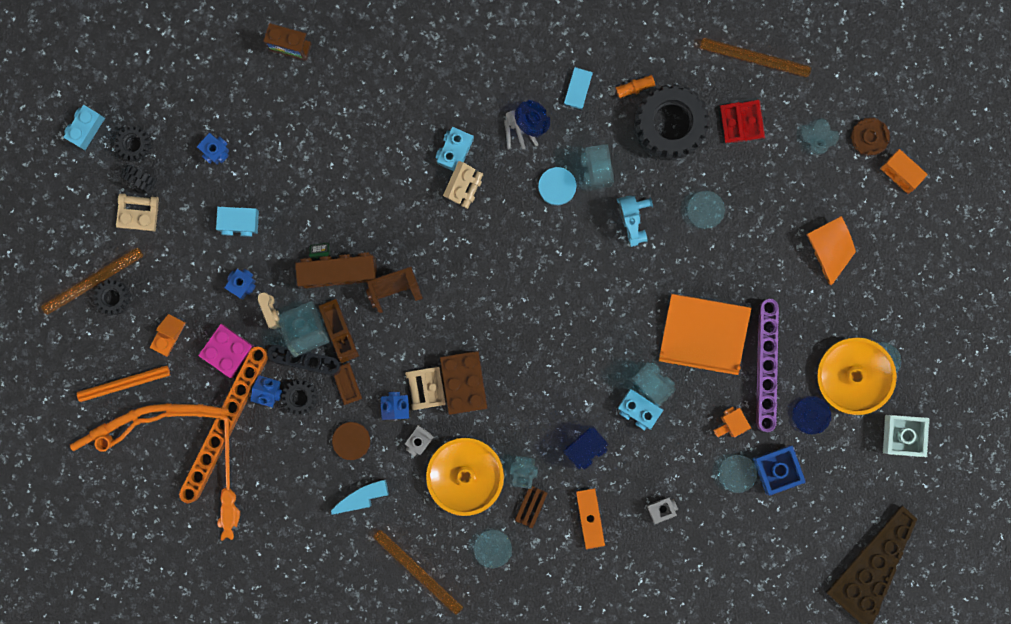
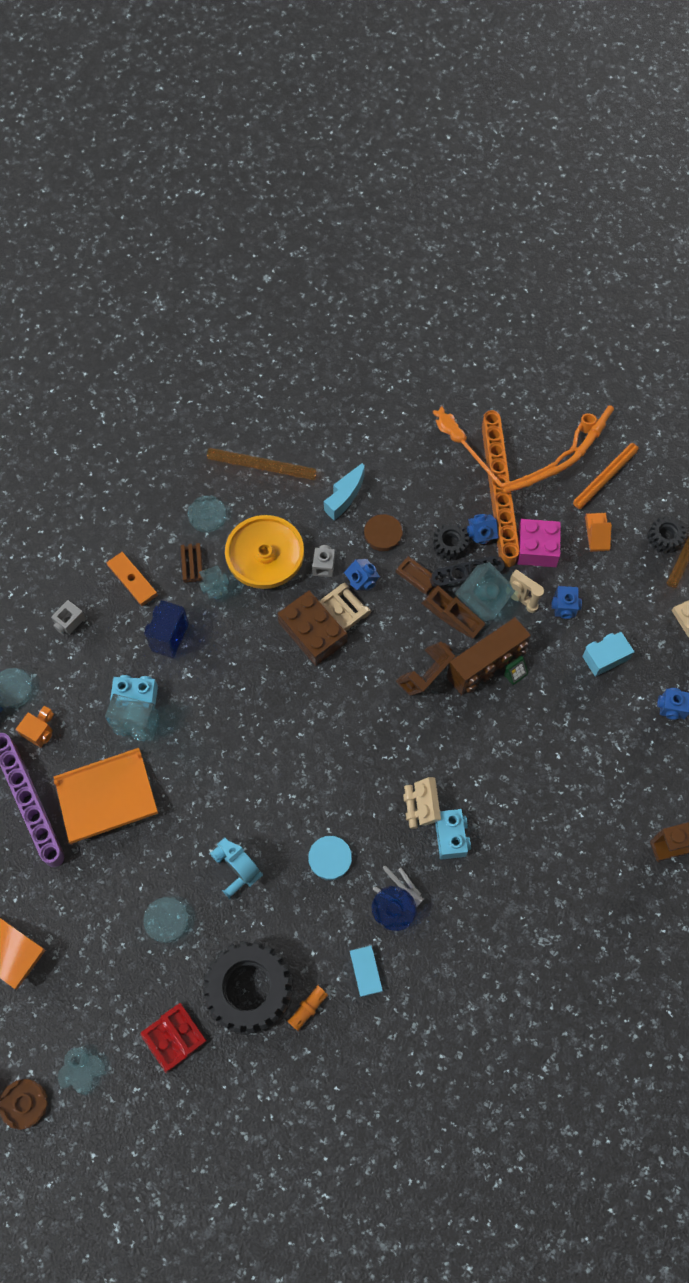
camera: 150 degrees right, 20 degrees down
(598, 167) = (299, 894): clear light blue brick -> none
(755, 57) = (193, 1120): clear orange axle -> none

